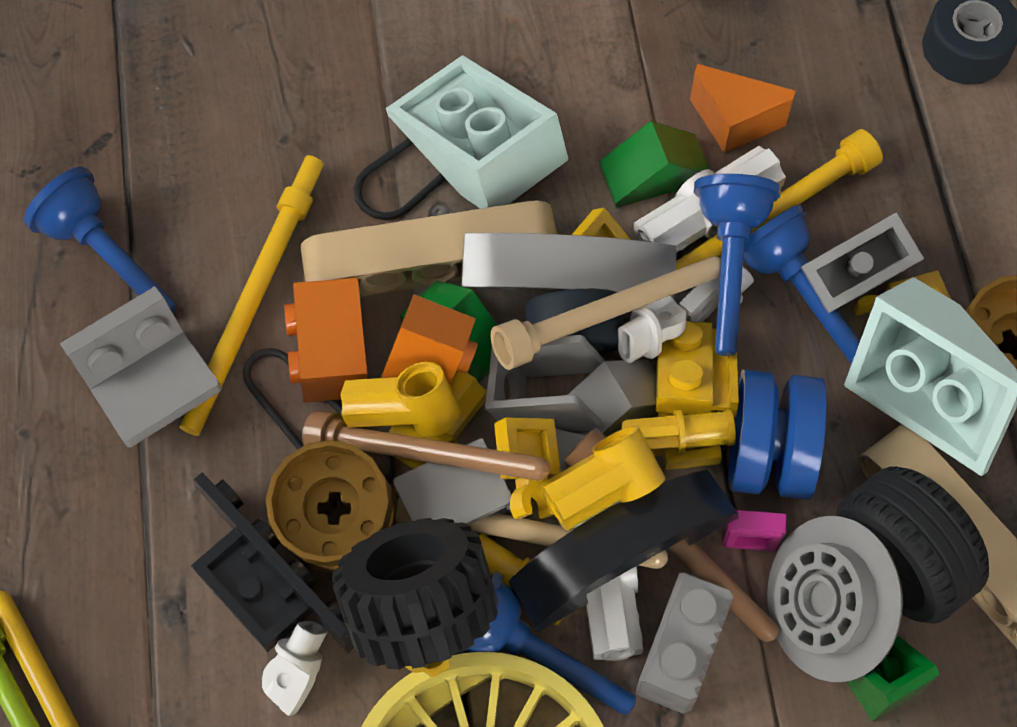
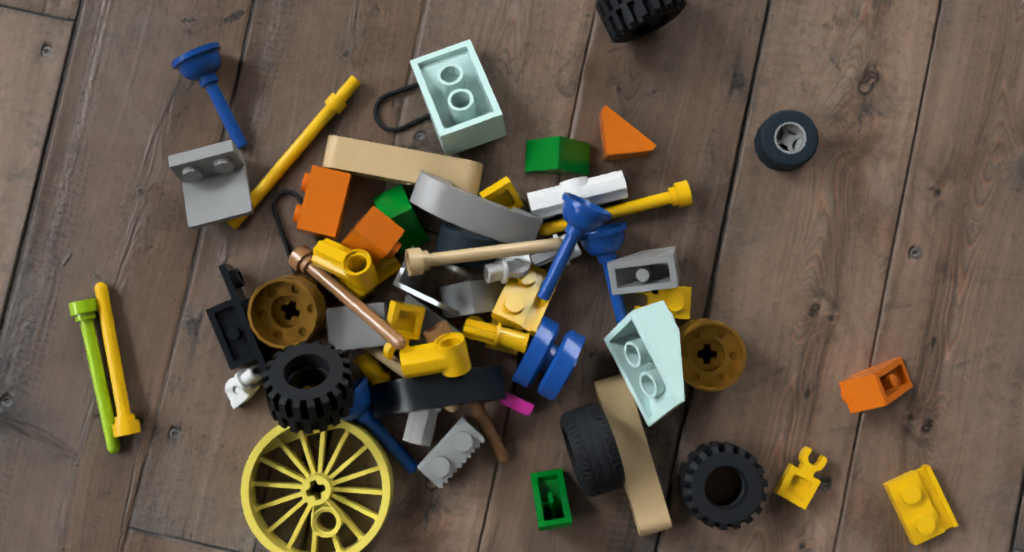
camera: 20 degrees right, 20 degrees up
(818, 598) = (539, 461): light grey wheel -> none

